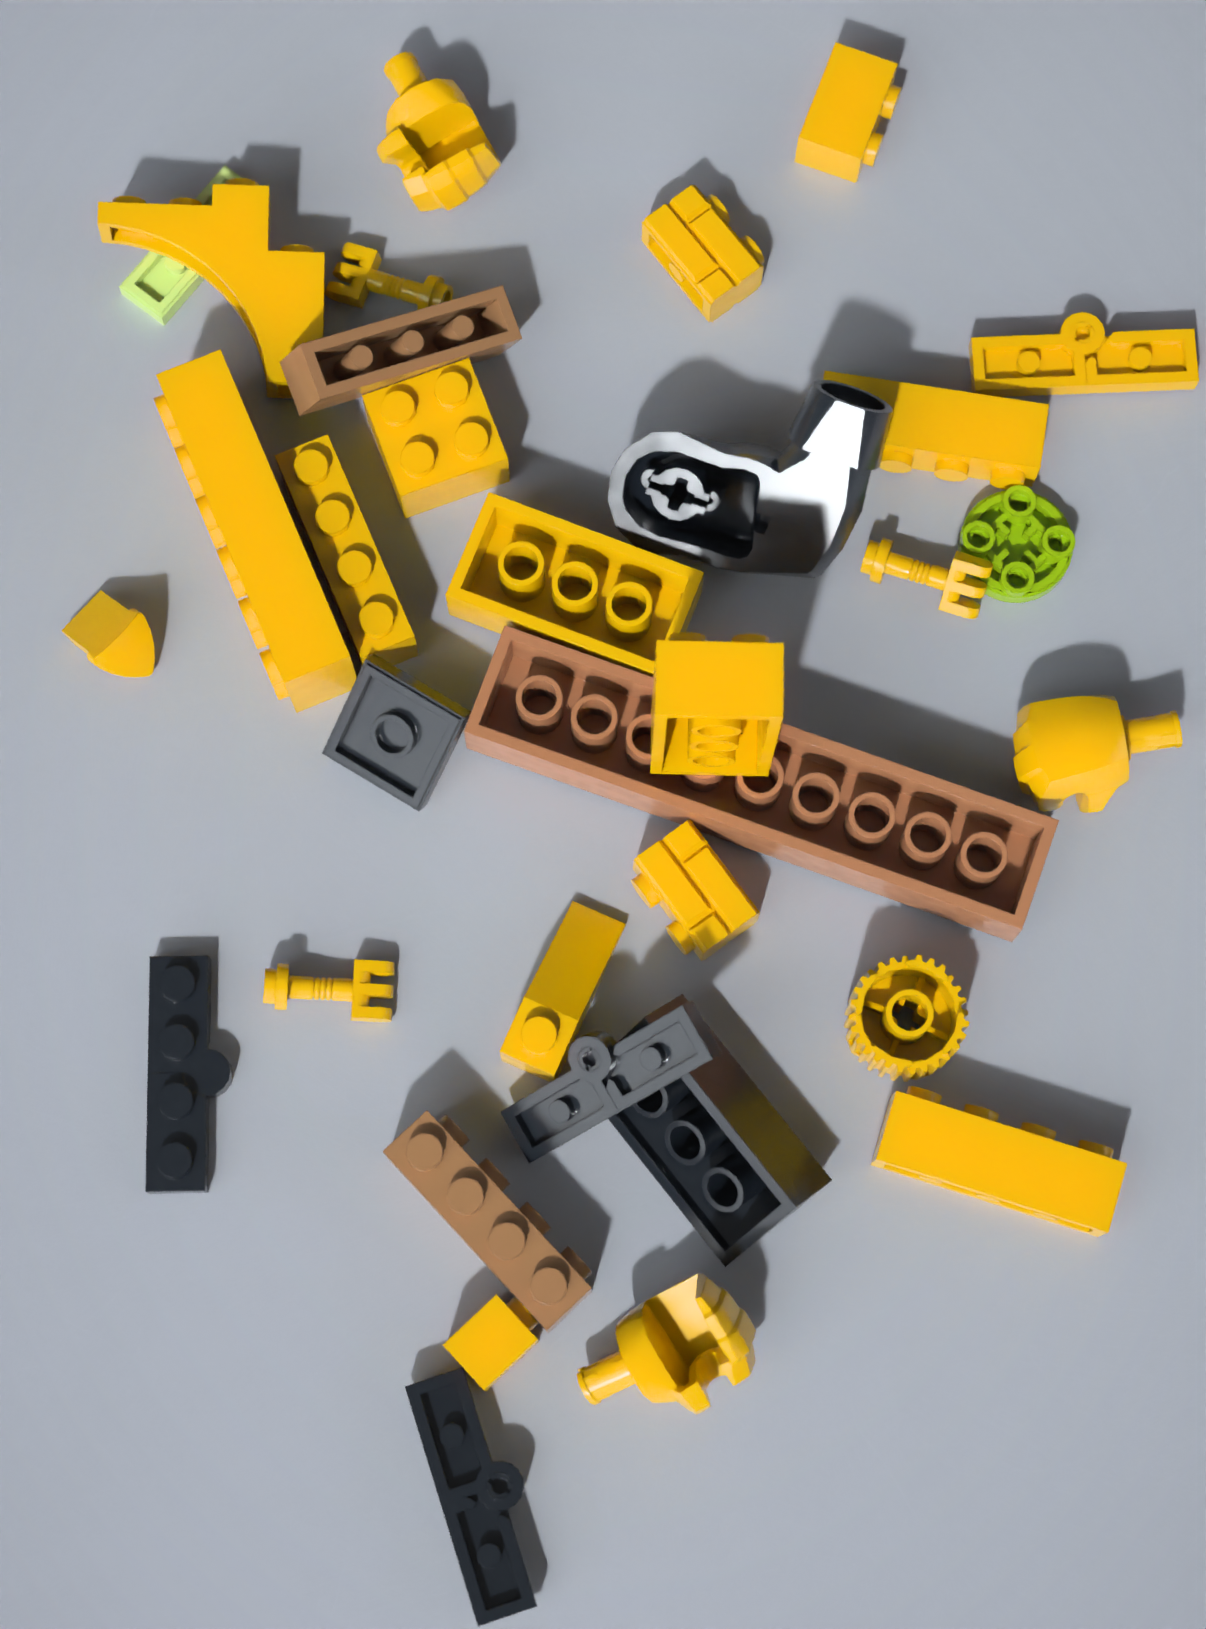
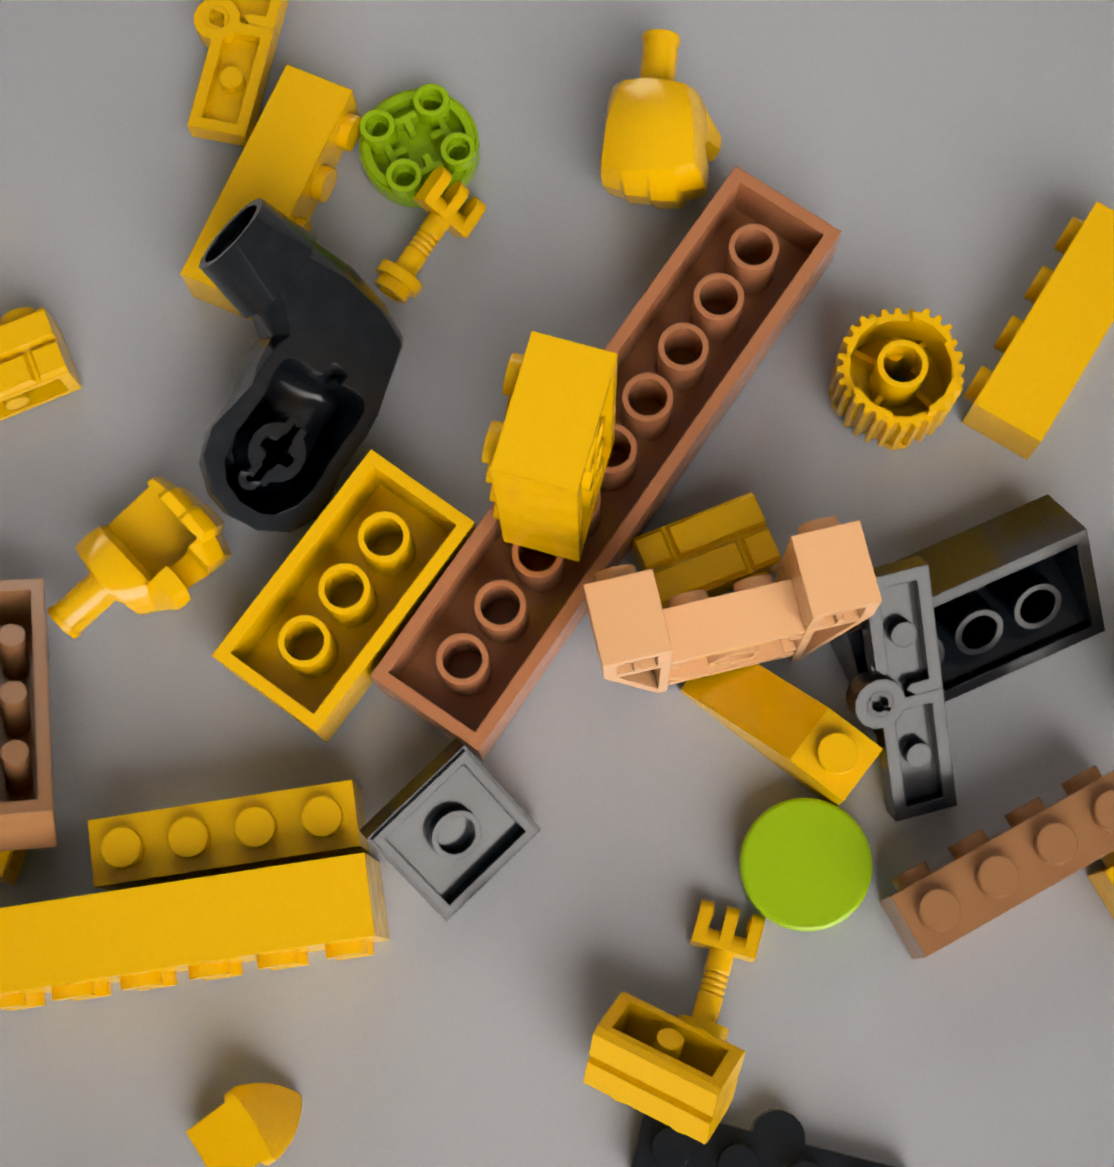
camera: 70 degrees left, 0 degrees up
(240, 955) = (663, 1067): none -> yellow brick
(436, 438) = (124, 703): yellow brick -> none
(443, 1041) = (805, 864): none -> lime tile
(564, 415) = (145, 557): none -> yellow piece
(592, 839) = (817, 595): none -> light nougat wedge

